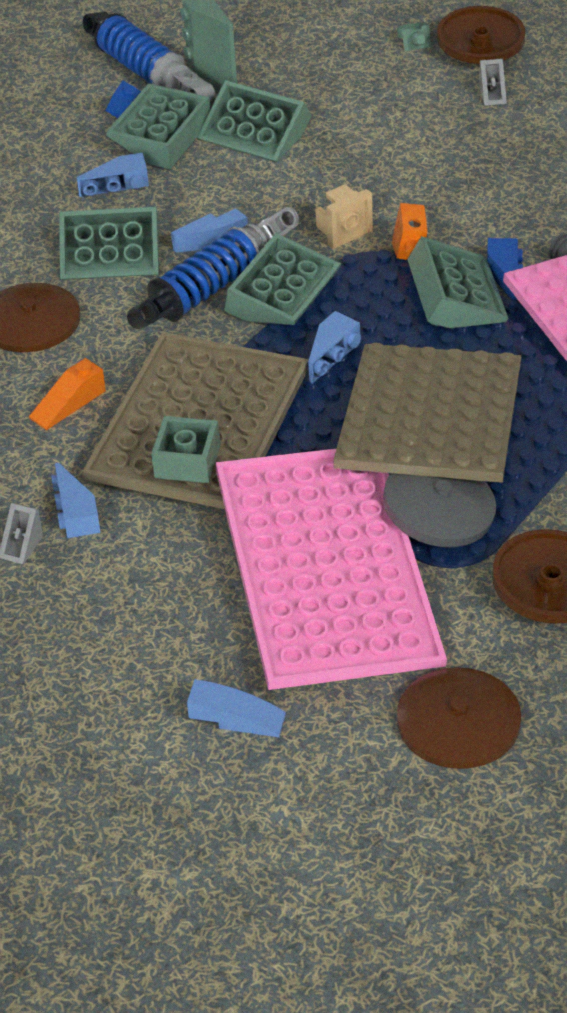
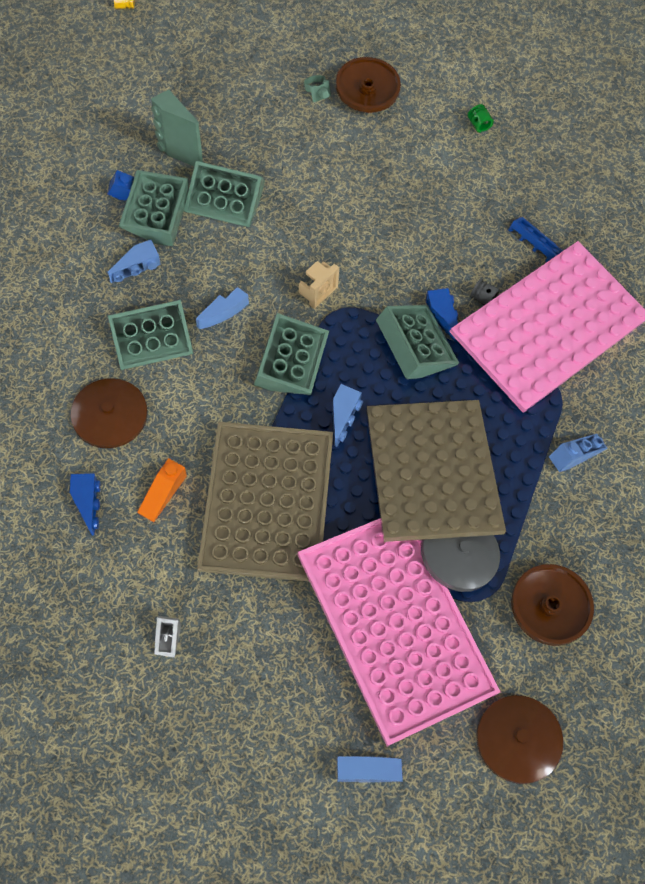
camera: 20 degrees left, 20 degrees up
(77, 503) = (202, 599): medium blue slope -> none
(143, 54) = (124, 137): piece -> none
(186, 449) = (273, 543): sand green brick -> none
(208, 270) = (235, 351): piece -> none
(405, 236) = (371, 294): orange torso -> none
(492, 82) = (388, 132): light grey slope -> none

